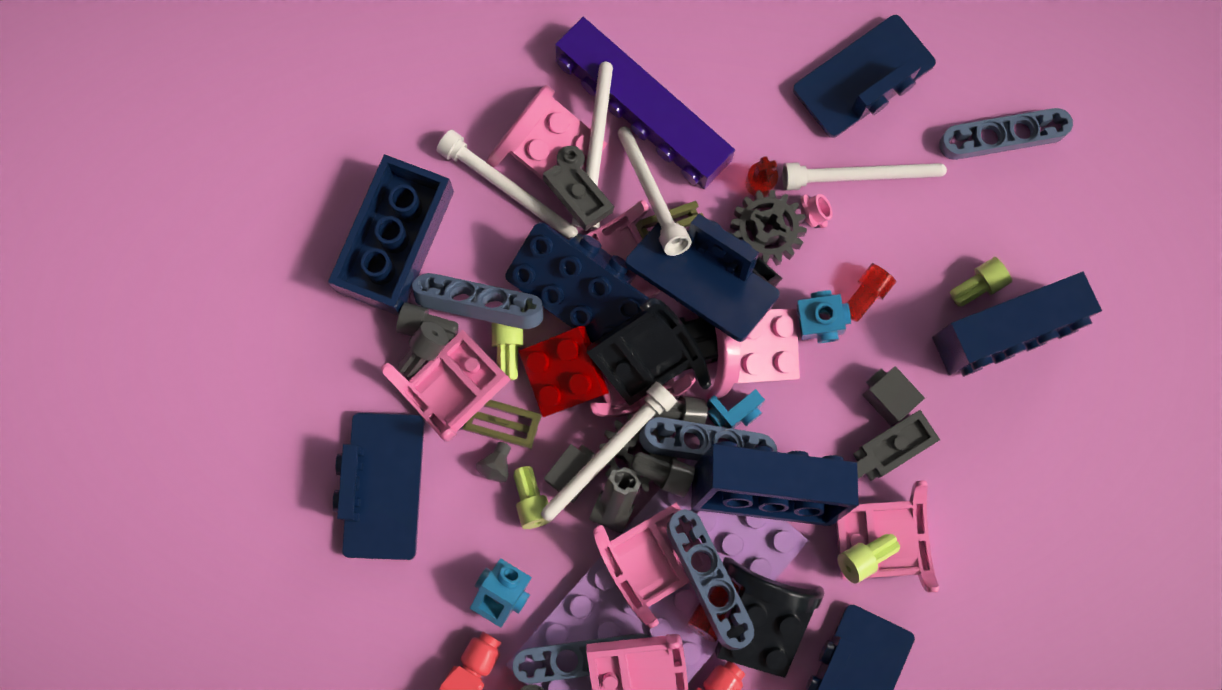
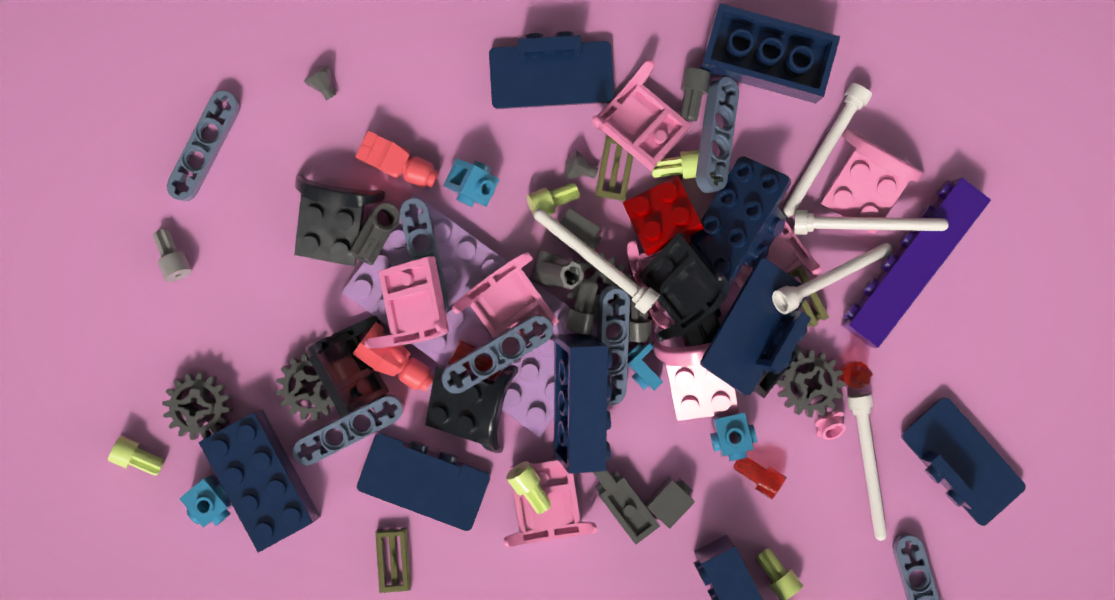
camera: 90 degrees right, 10 degrees up
(424, 345) = (673, 93): dark grey piece -> none
(577, 189) = (826, 210): dark grey hinge -> none

